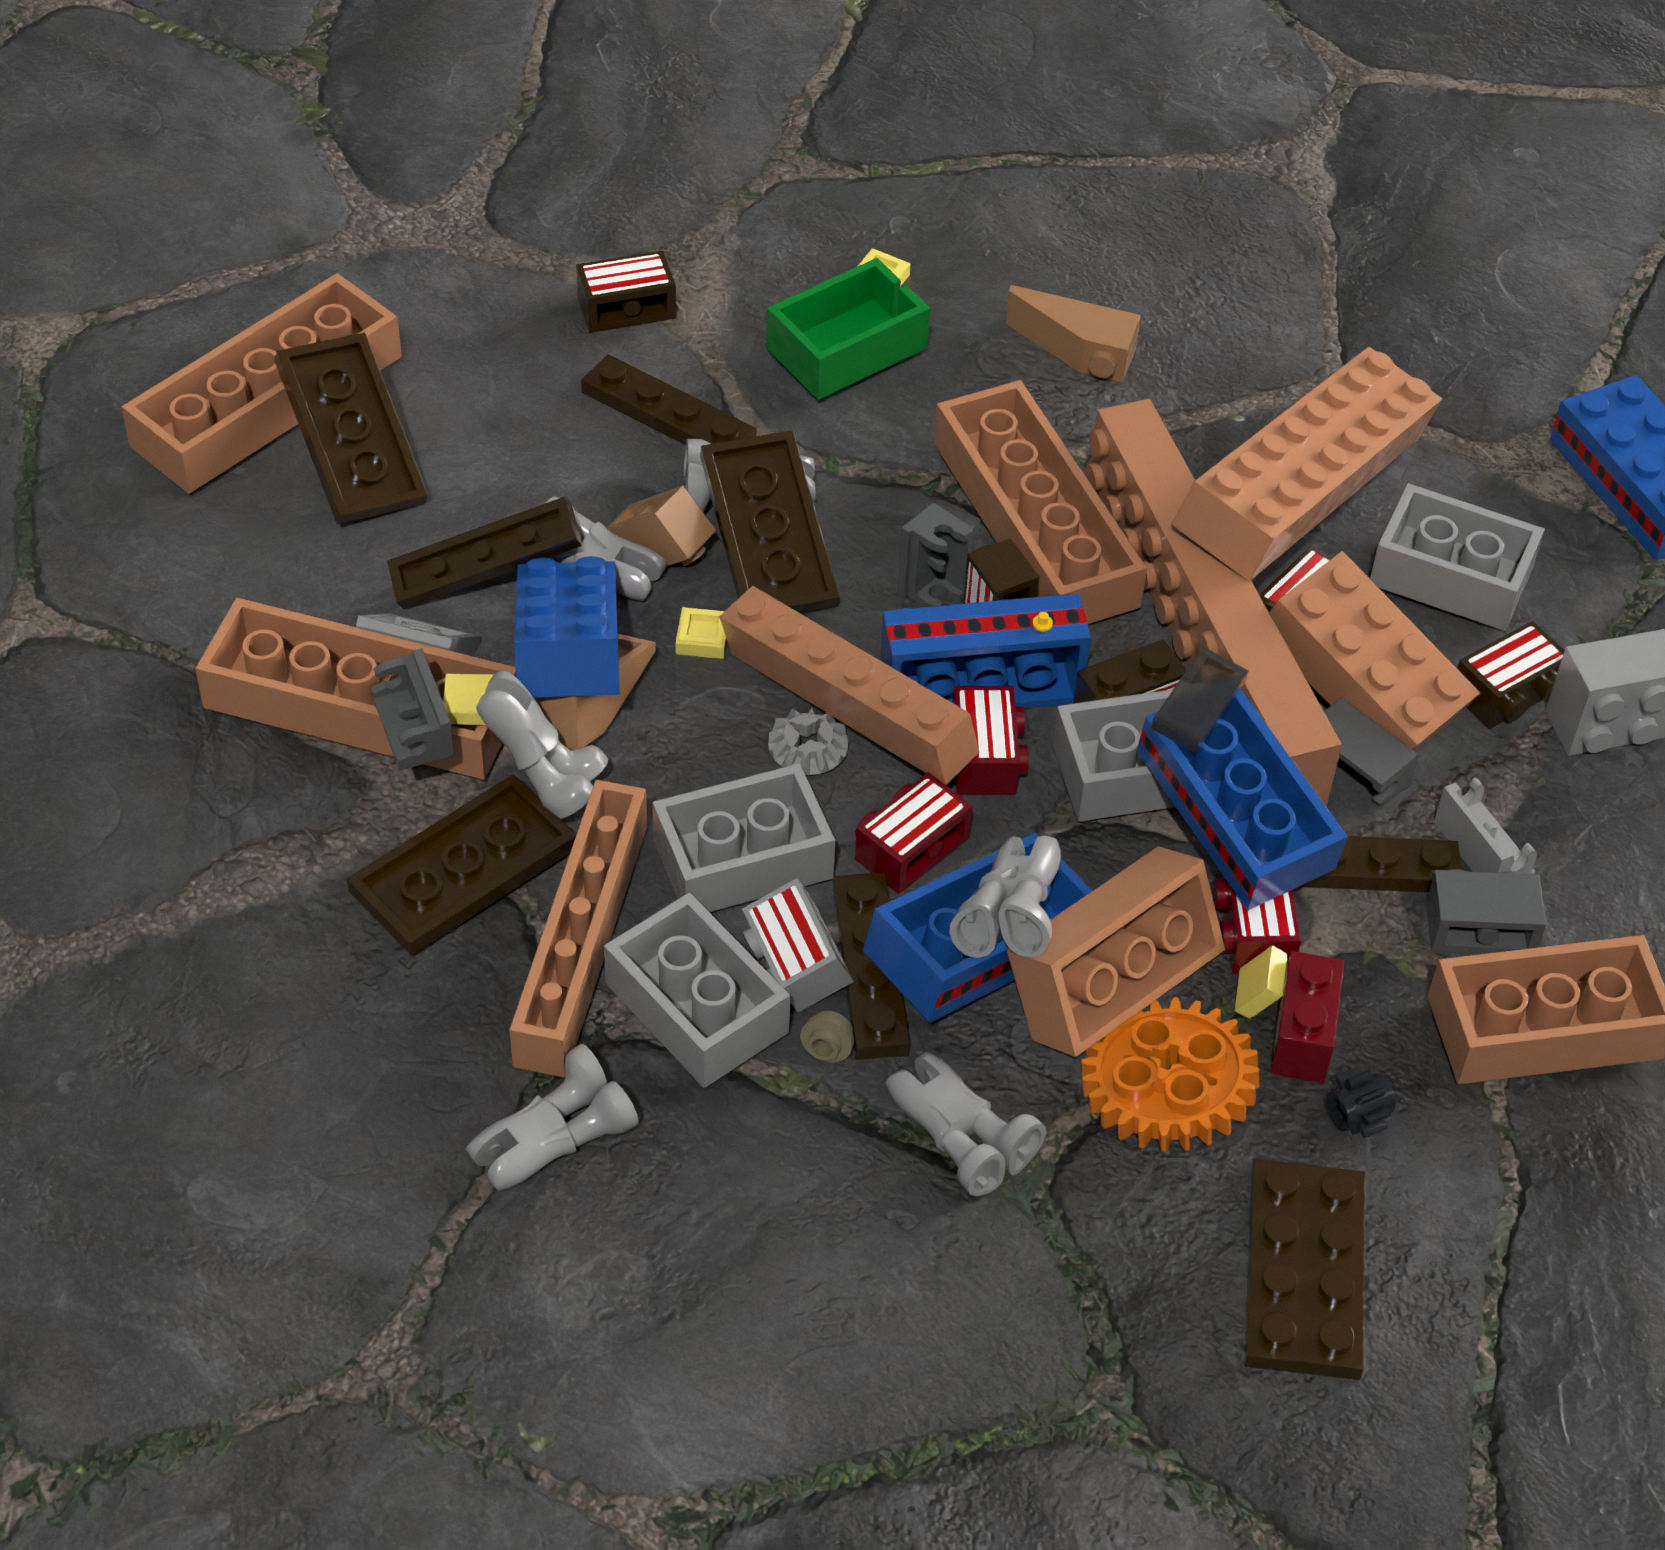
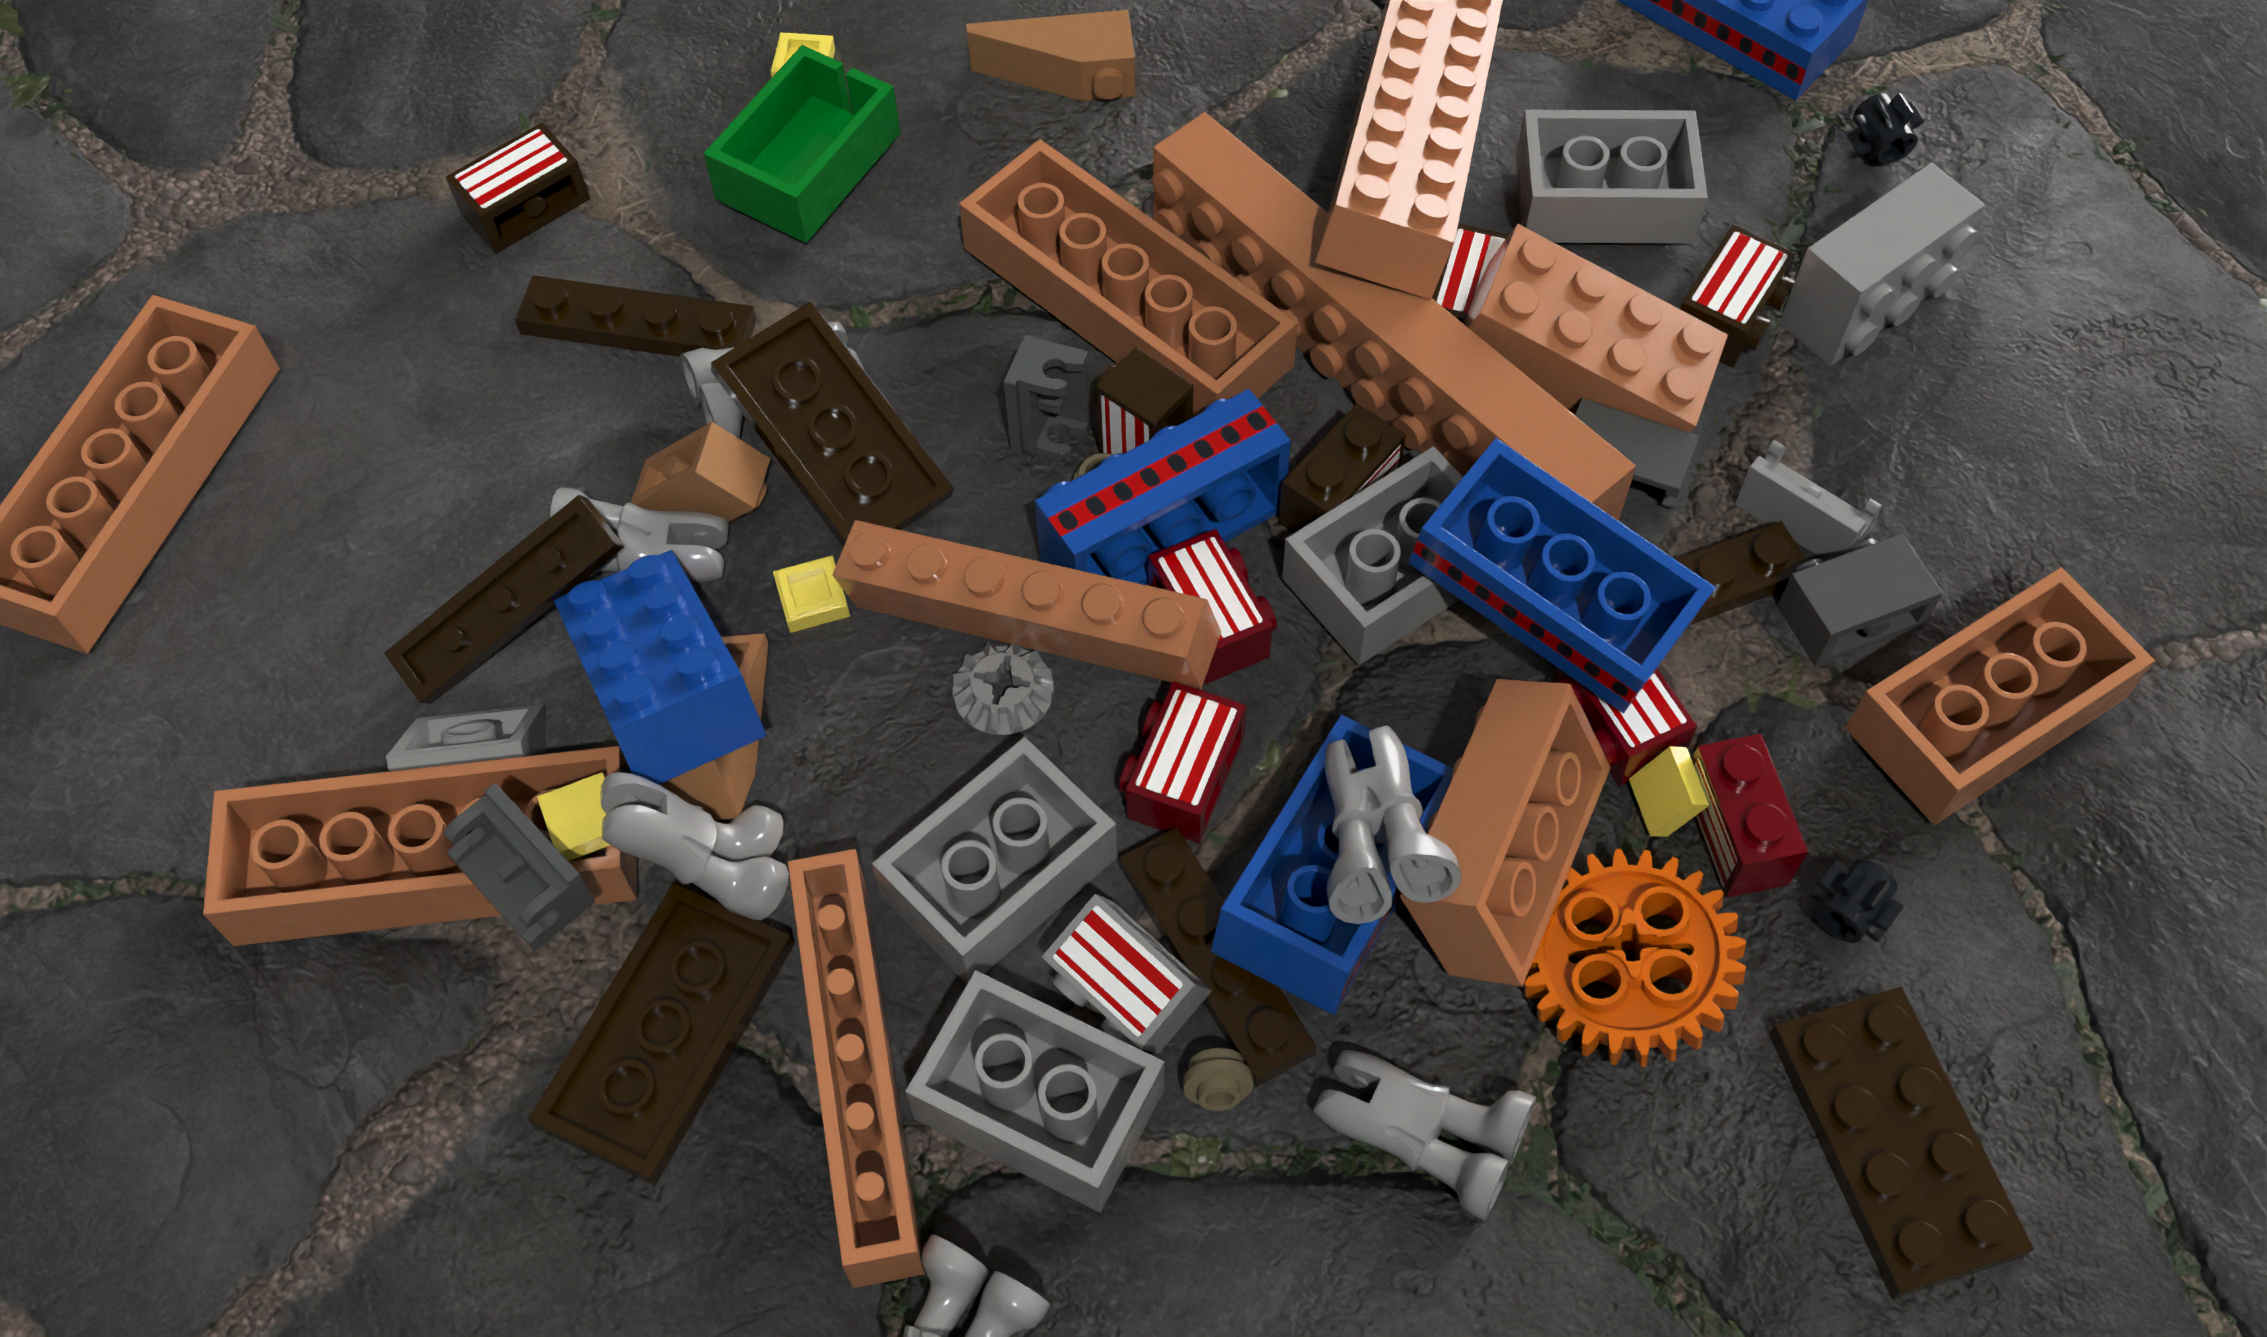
camera: 20 degrees left, 10 degrees up
(350, 428) = (259, 494): dark brown plate -> none
(1042, 622) = (1228, 443): yellow piece -> none
(1199, 699) = (1476, 482): clear smoke tile -> none

